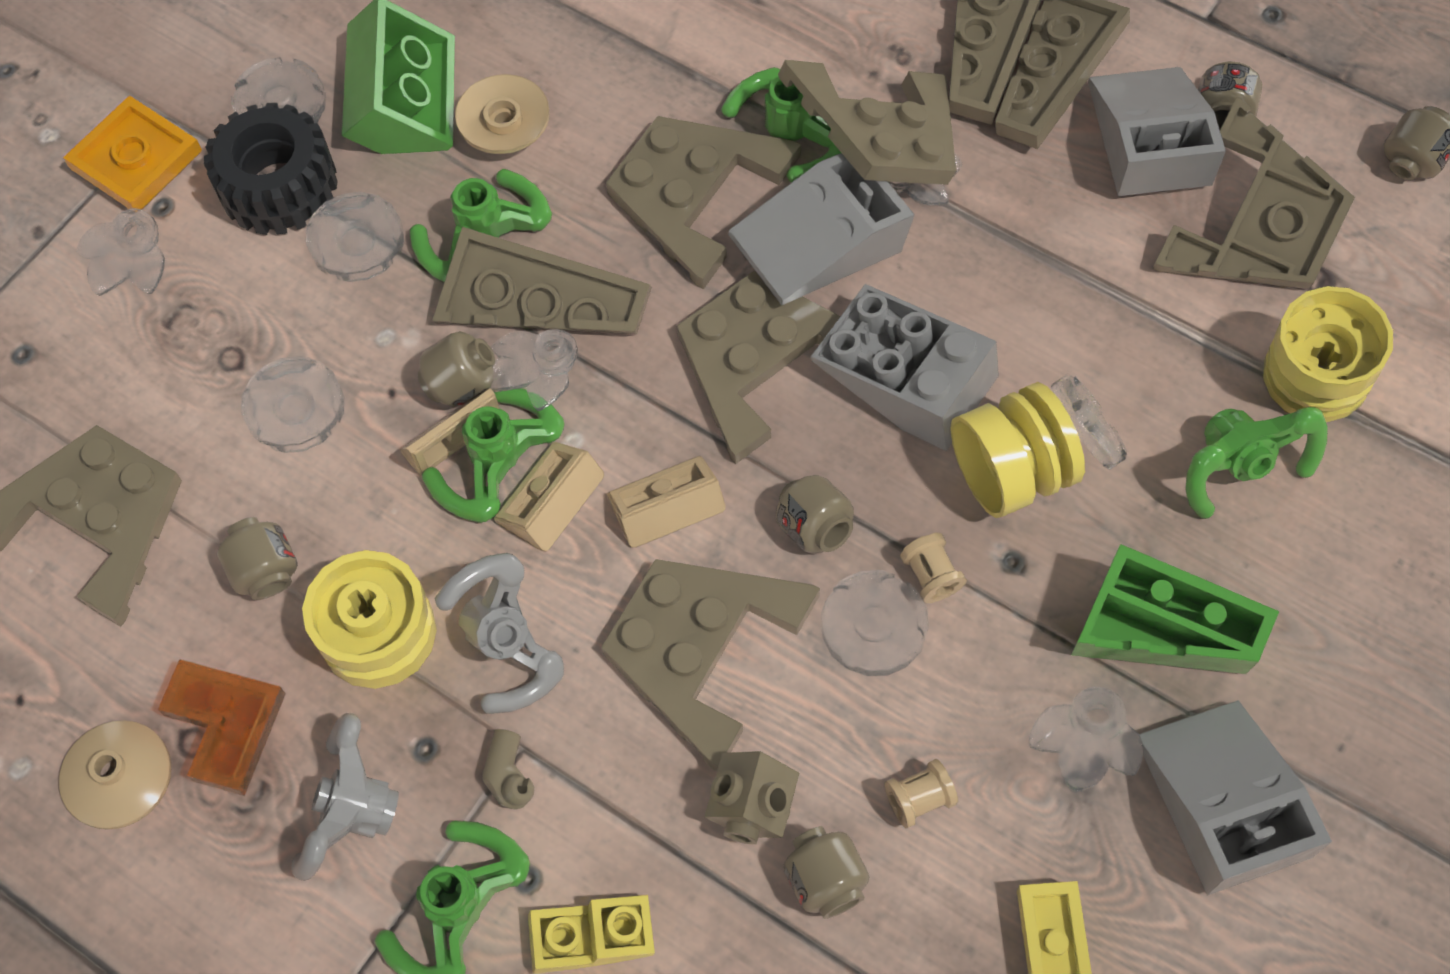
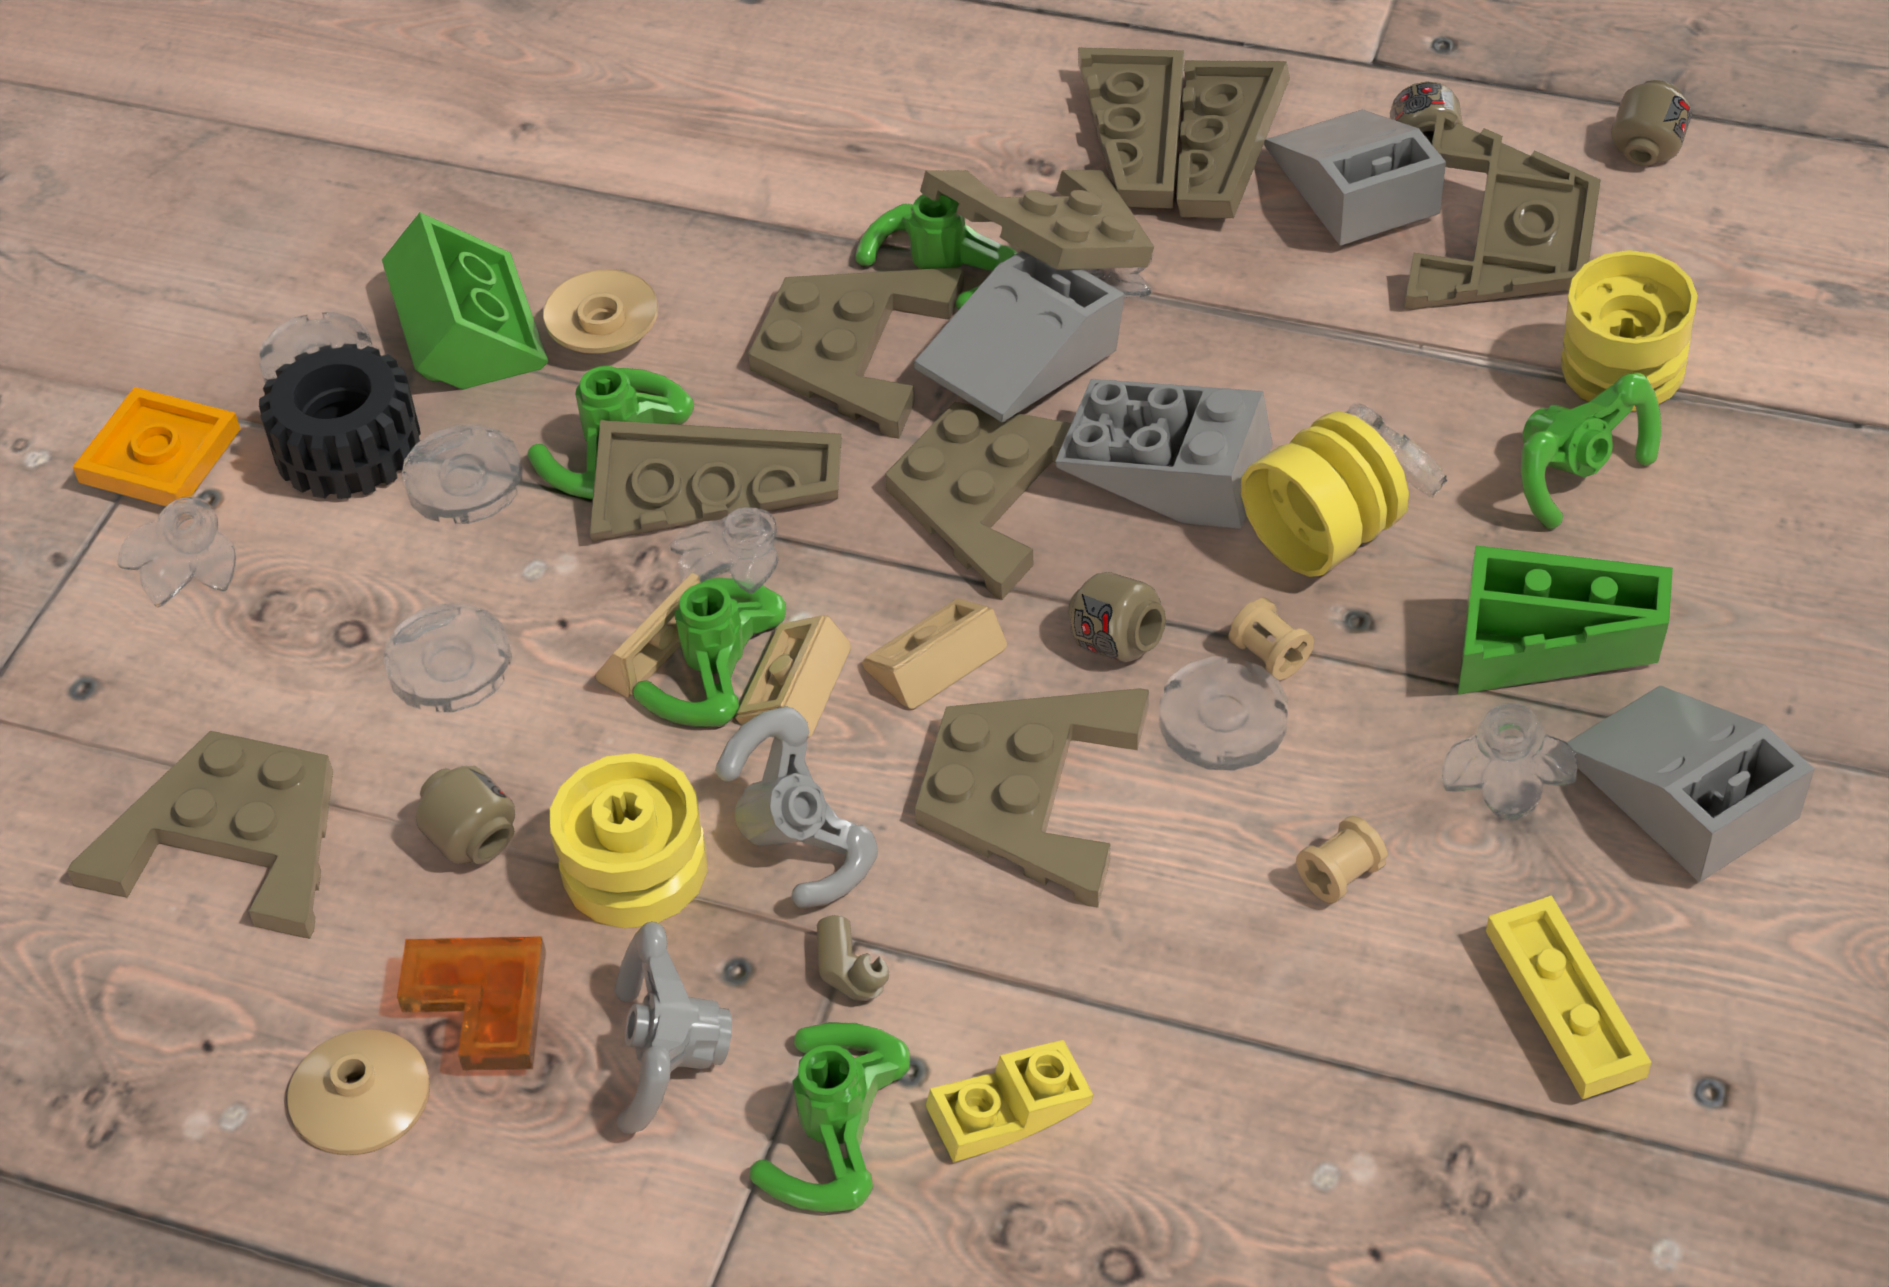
camera: 15 degrees left, 15 degrees down
(456, 369) = (641, 567): dark tan head -> none
(751, 796) = (1150, 902): dark tan brick -> none
(826, 872) = (1264, 959): dark tan head -> none

